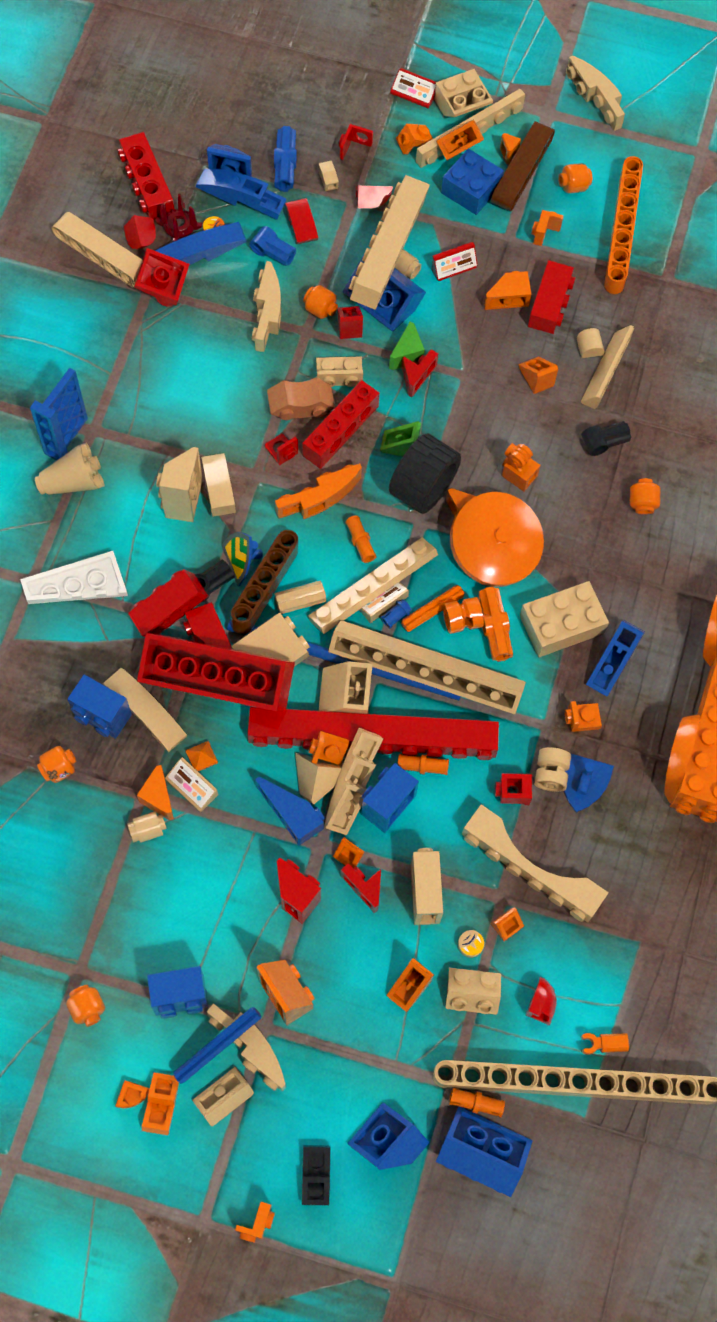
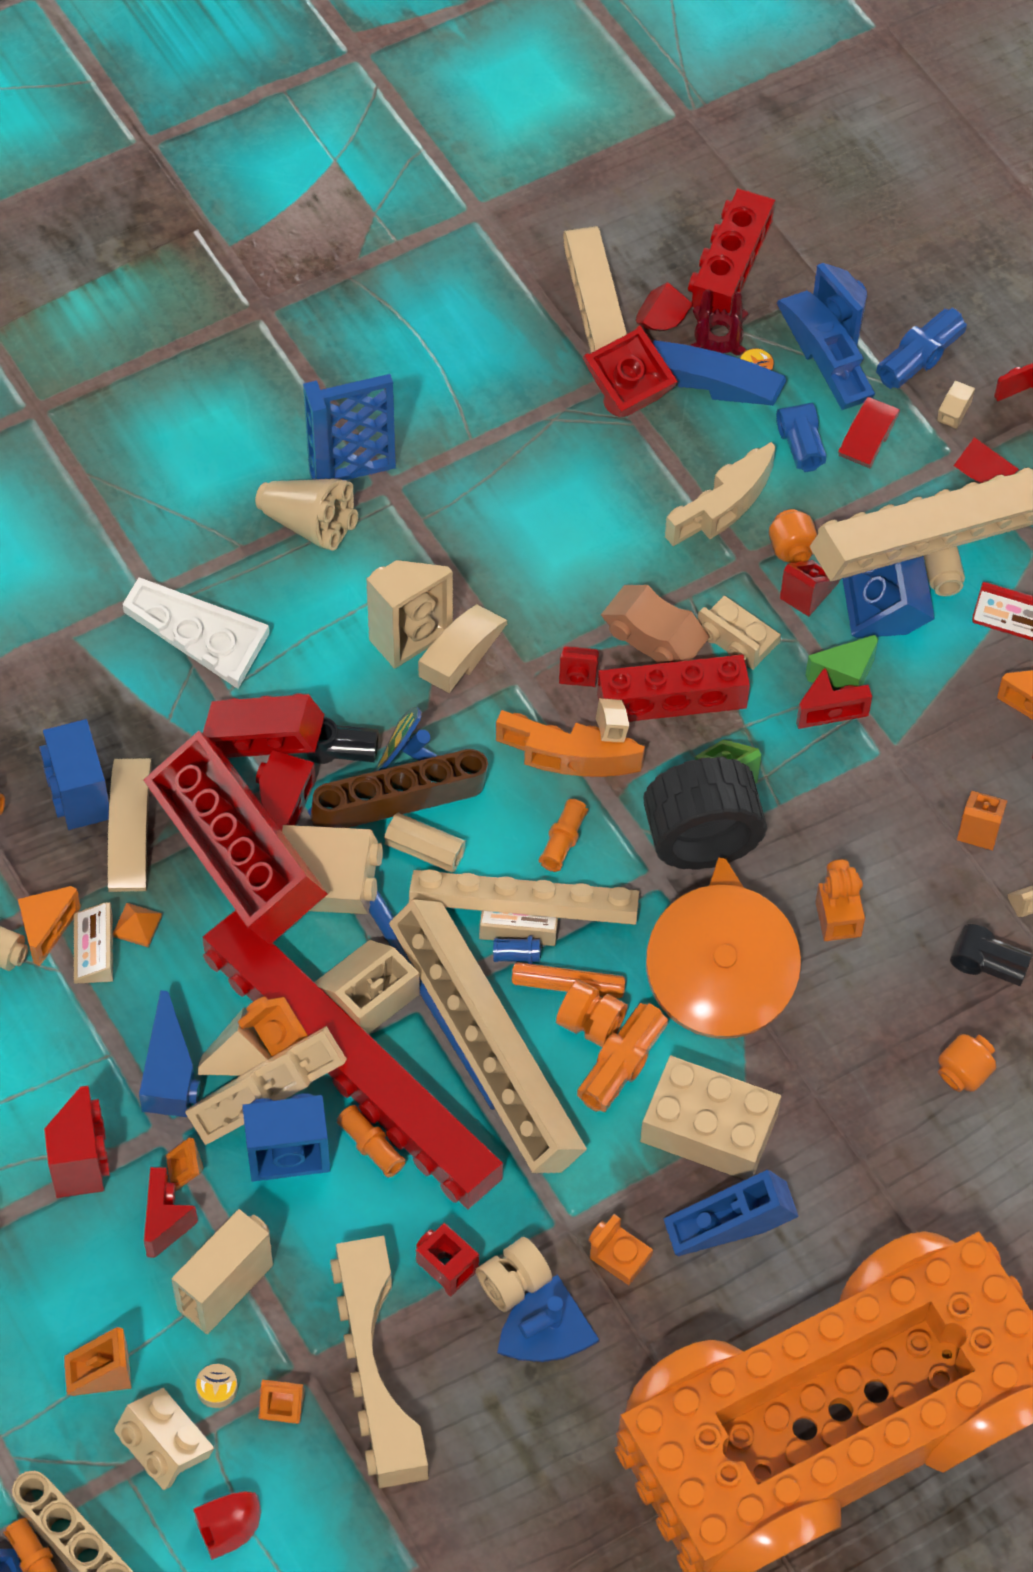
camera: 45 degrees right, 10 degrees down
(334, 462) = (612, 720): none -> tan piece

